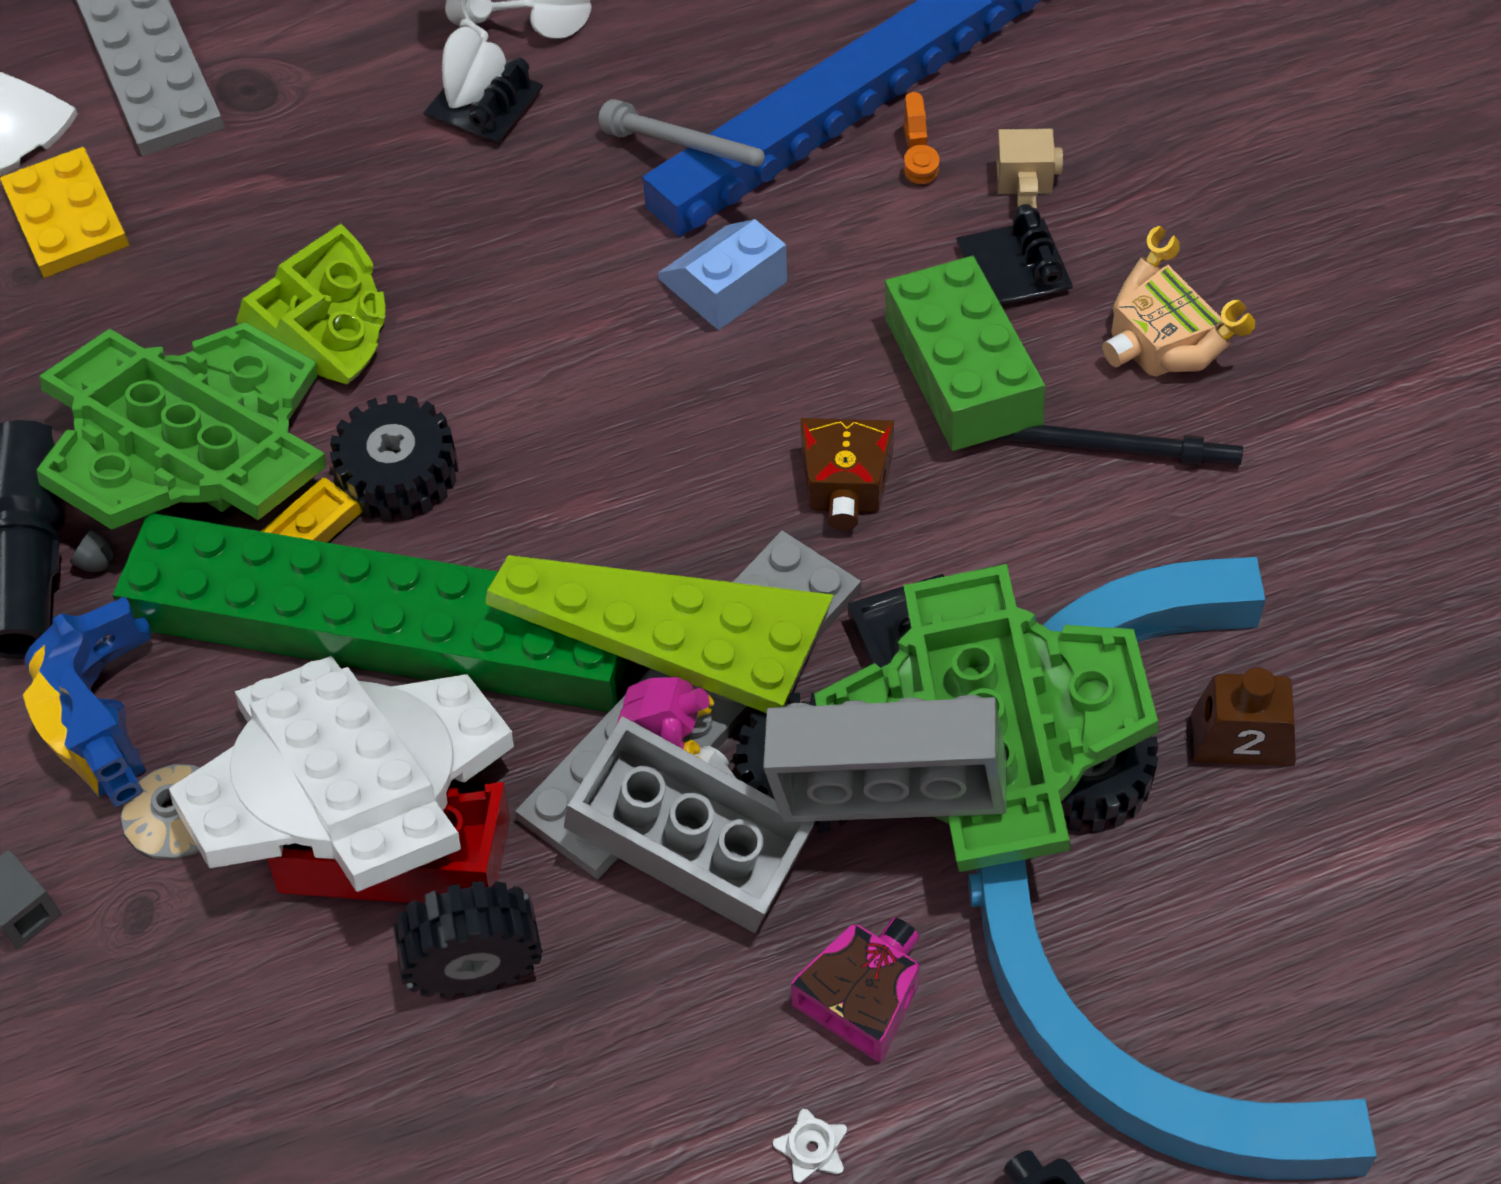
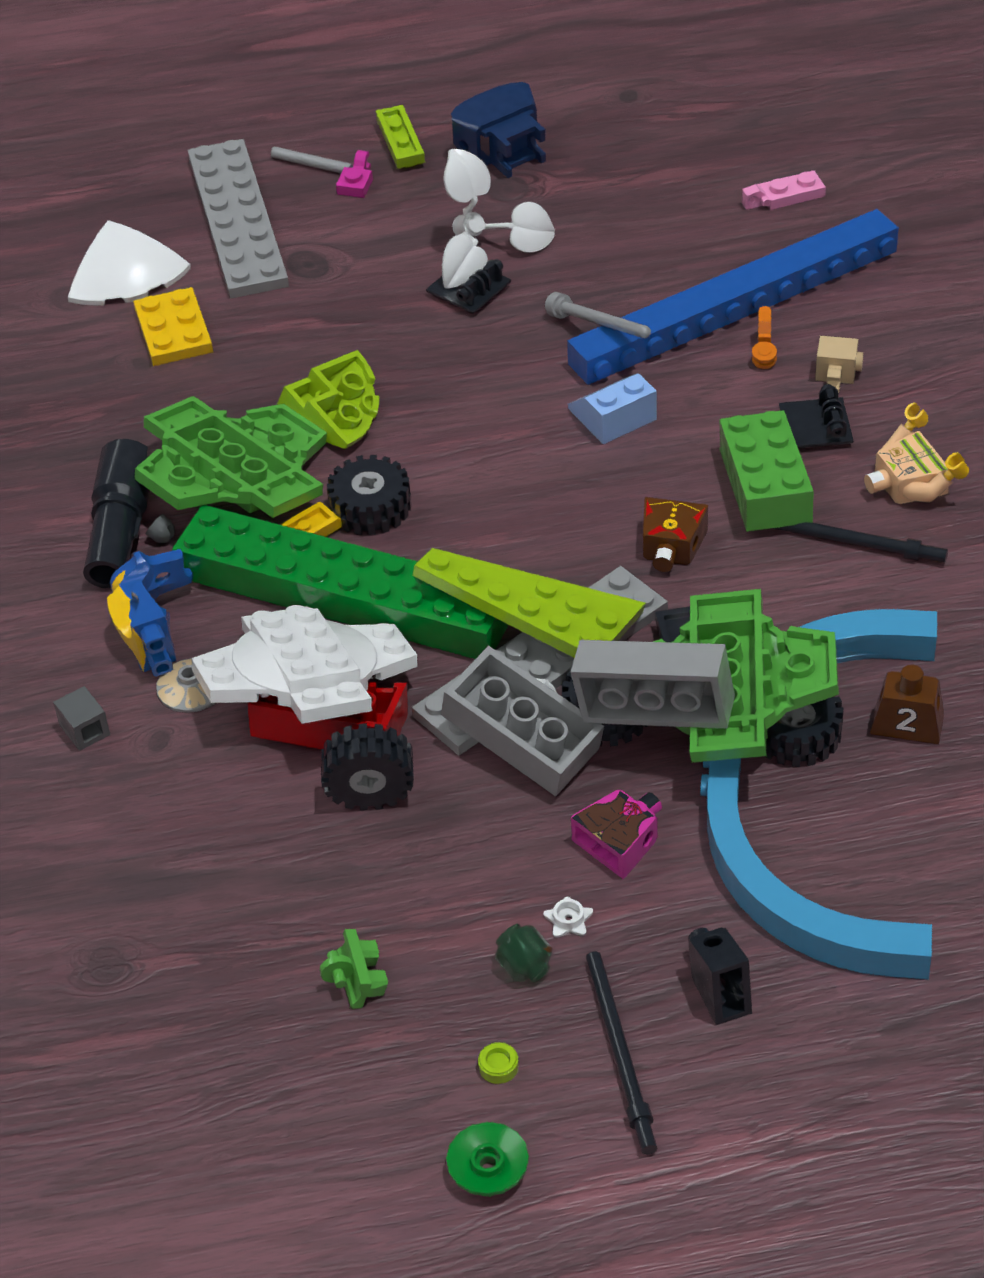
camera: 10 degrees right, 10 degrees down
(667, 709) = (523, 649): dark pink piece -> none

